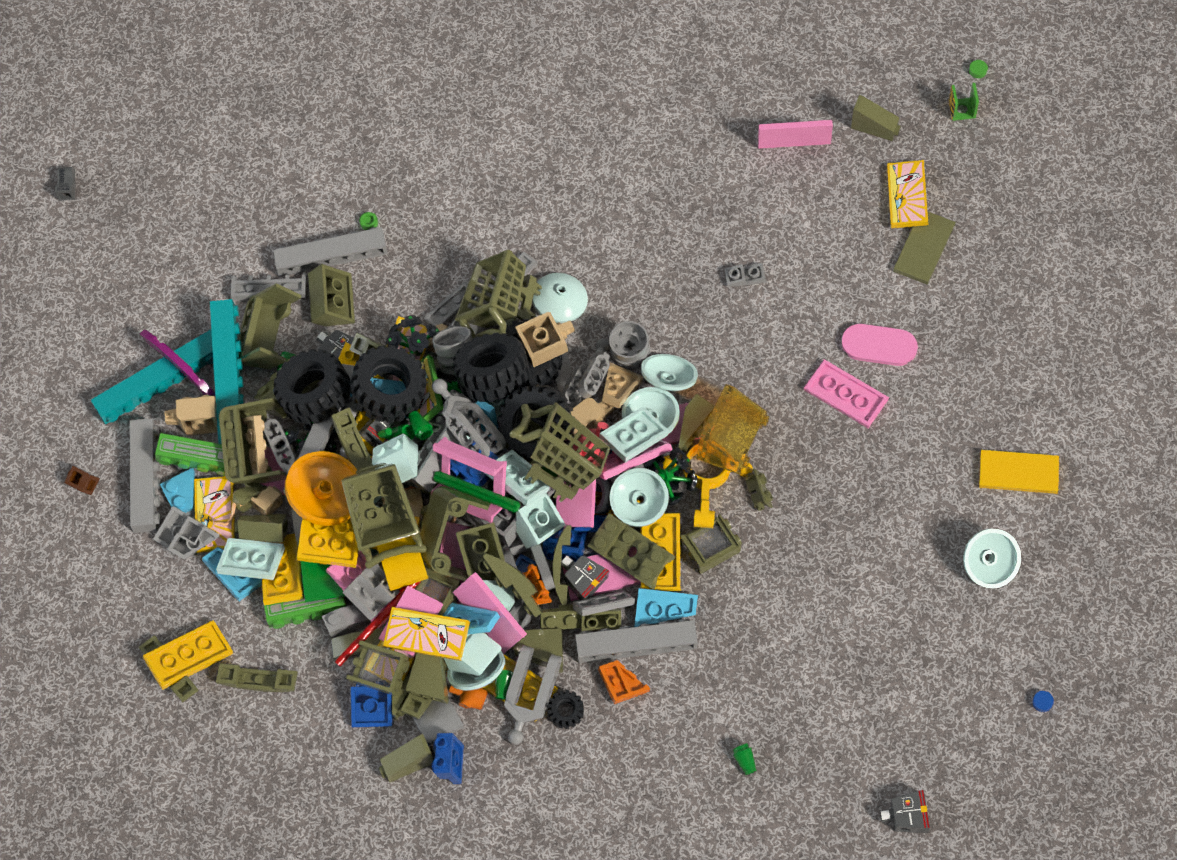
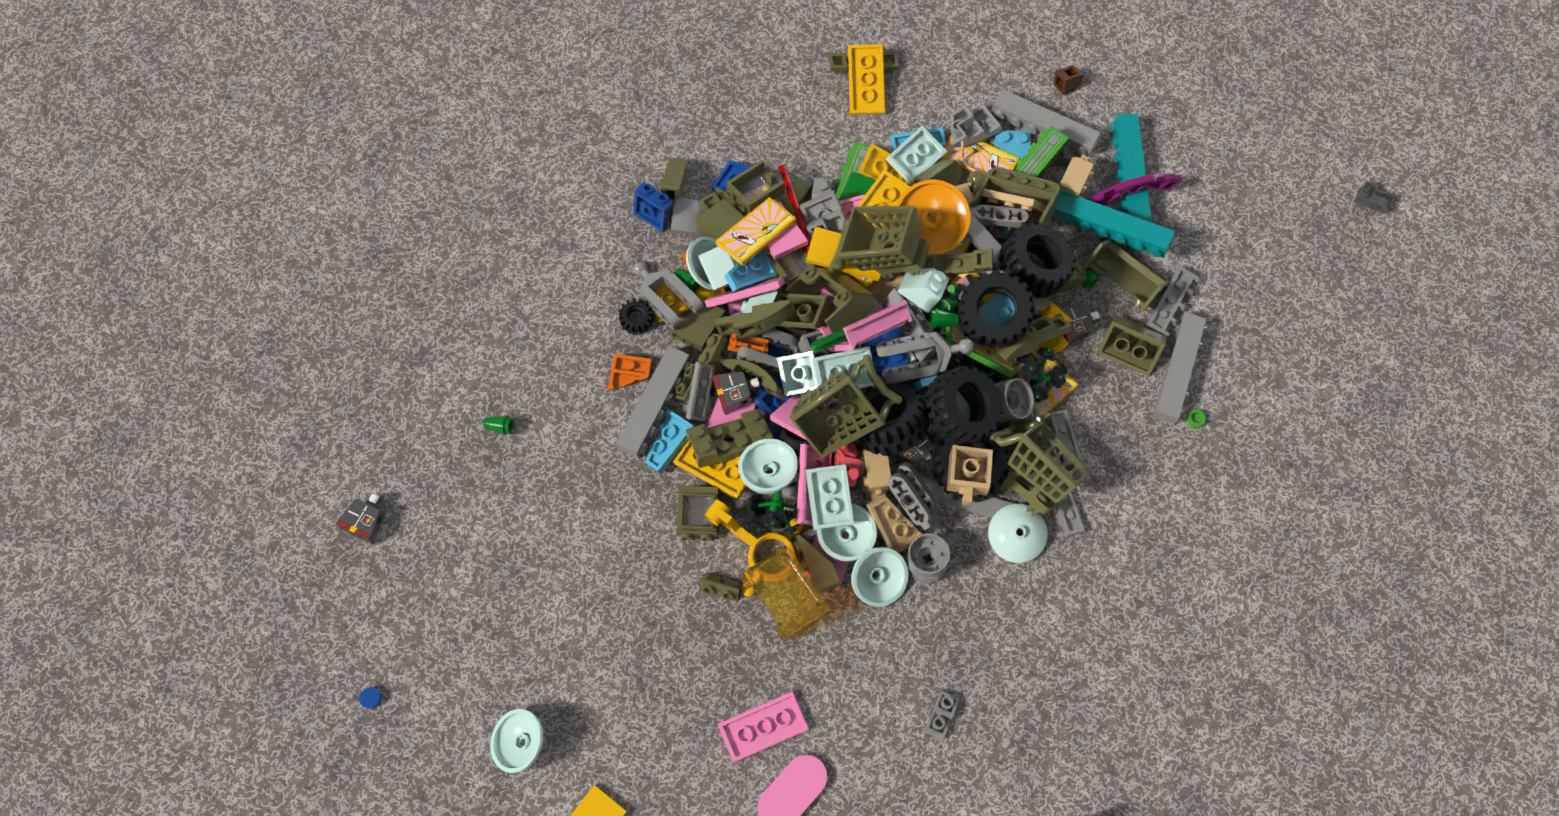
camera: 115 degrees right, 5 degrees up
(255, 679) = (816, 117): olive slope -> none

